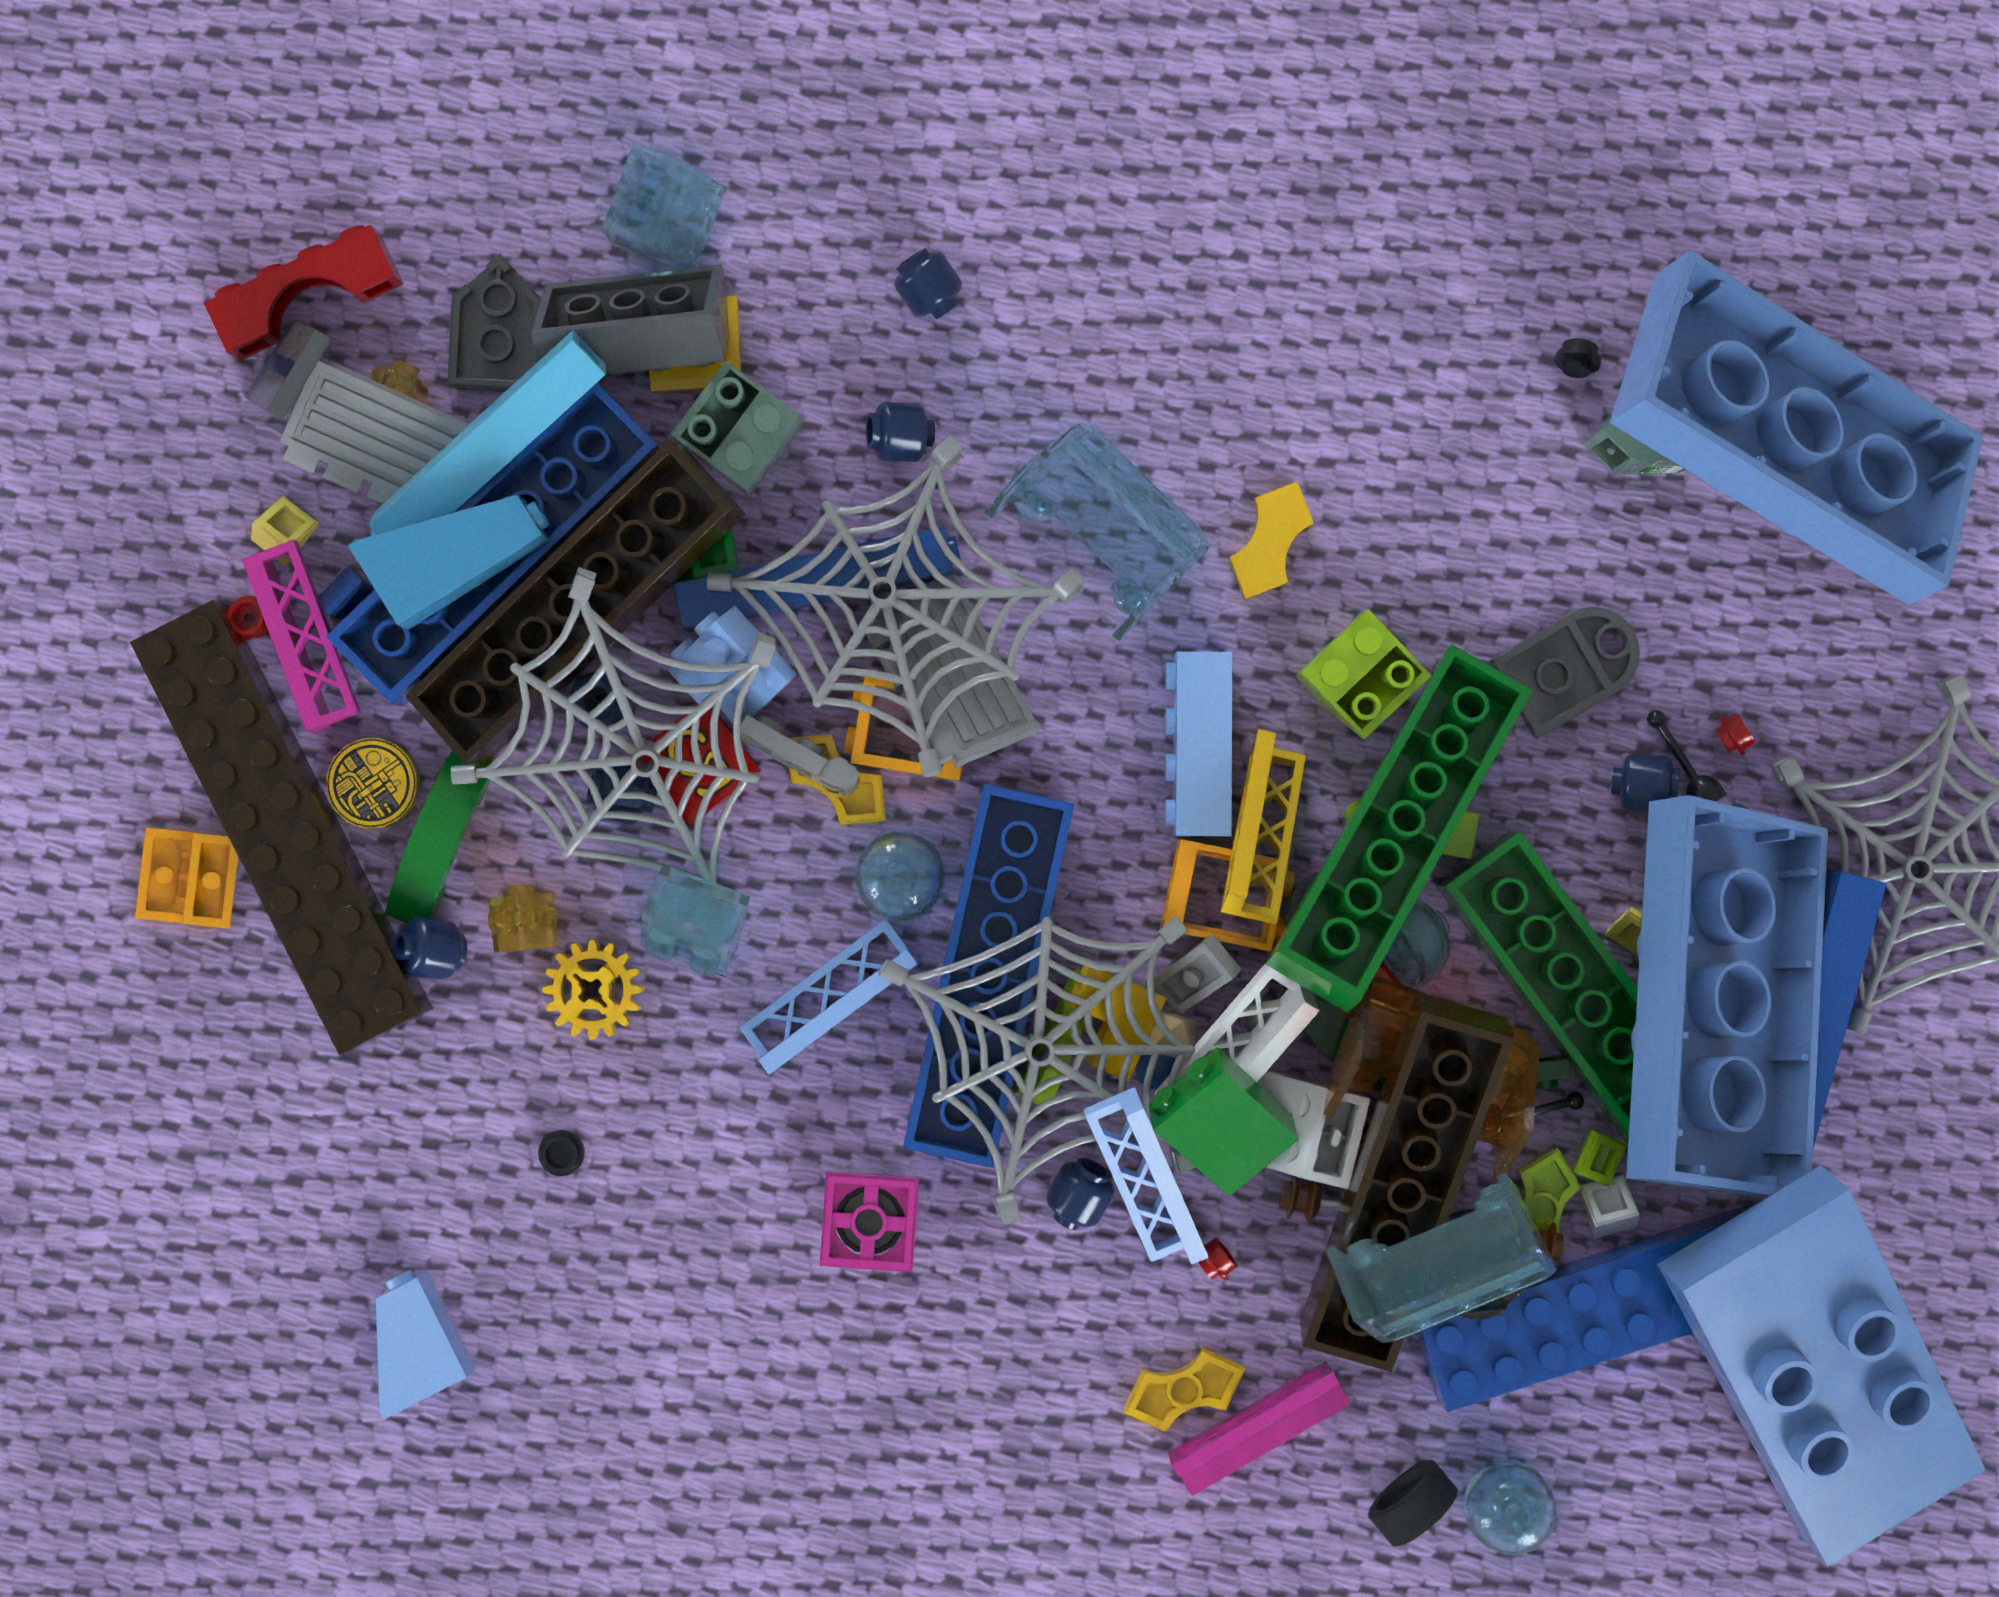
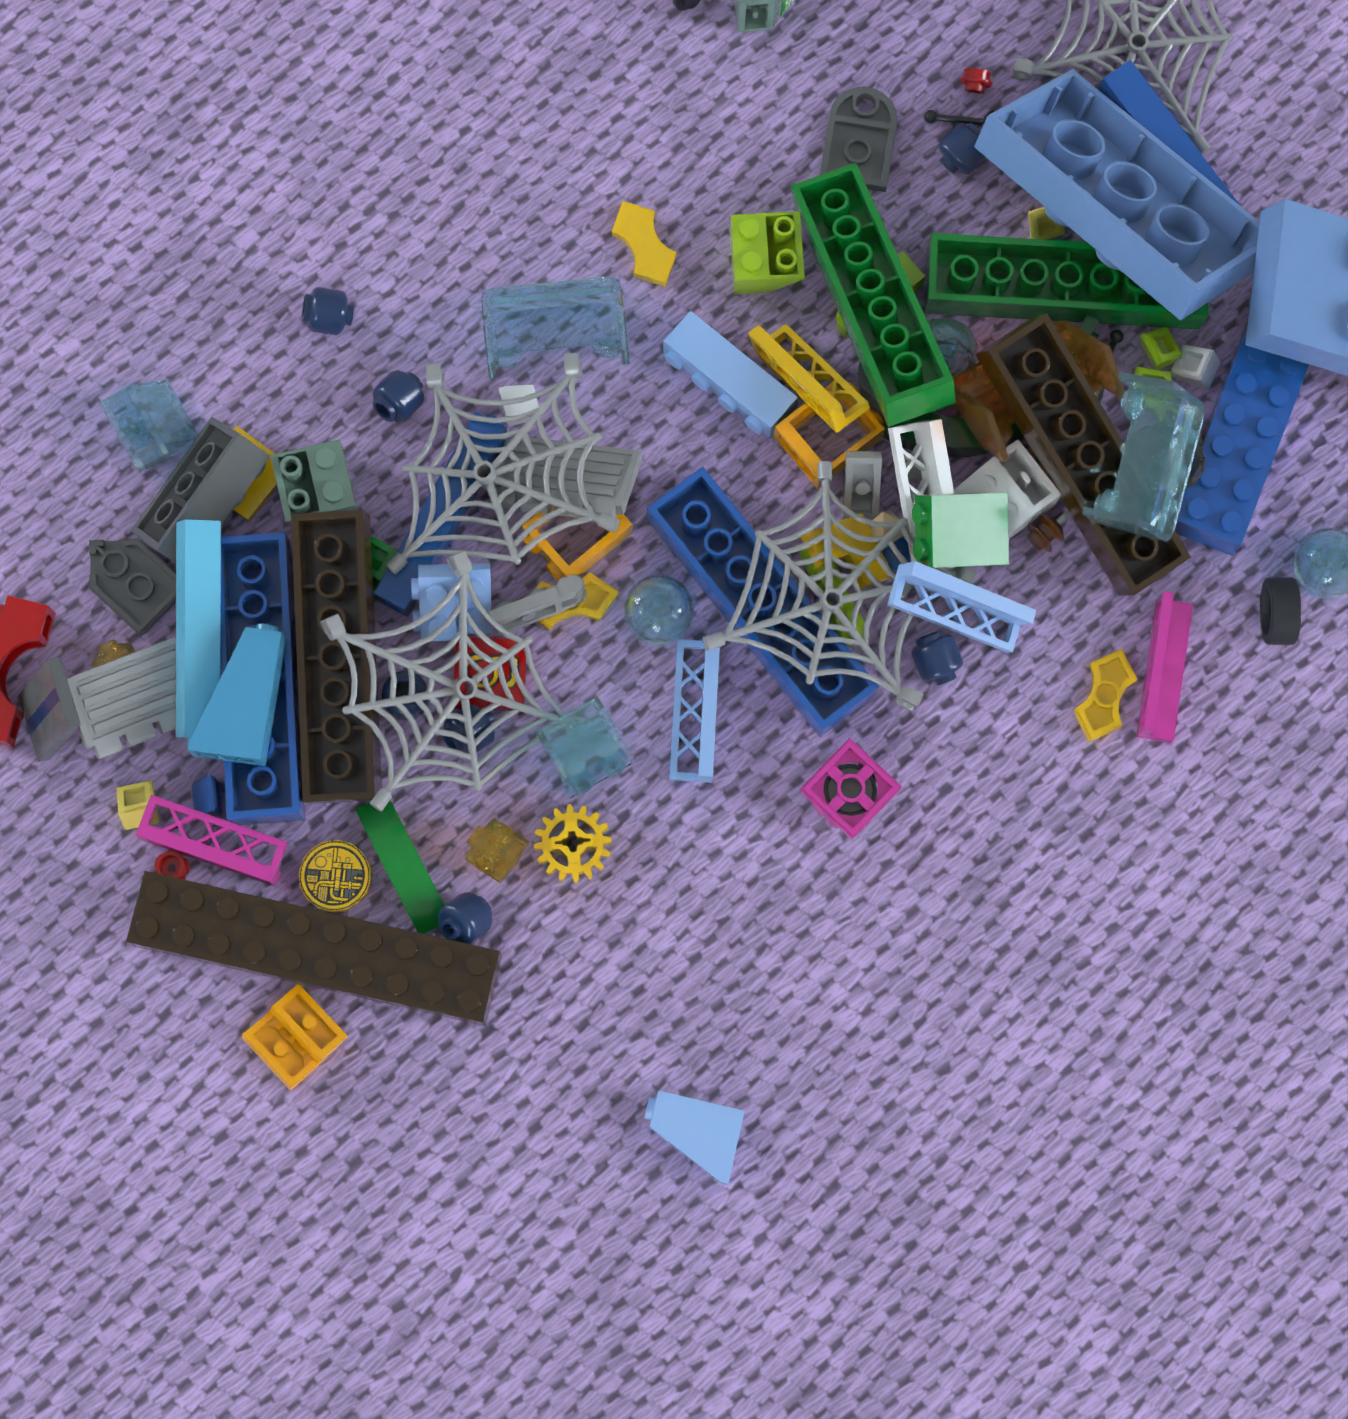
camera: 50 degrees left, 10 degrees down
(561, 1152) = (655, 947): black plate -> none
(1000, 549) = (510, 392): none -> white slope
(1219, 1260) = (1044, 612): red plate -> none

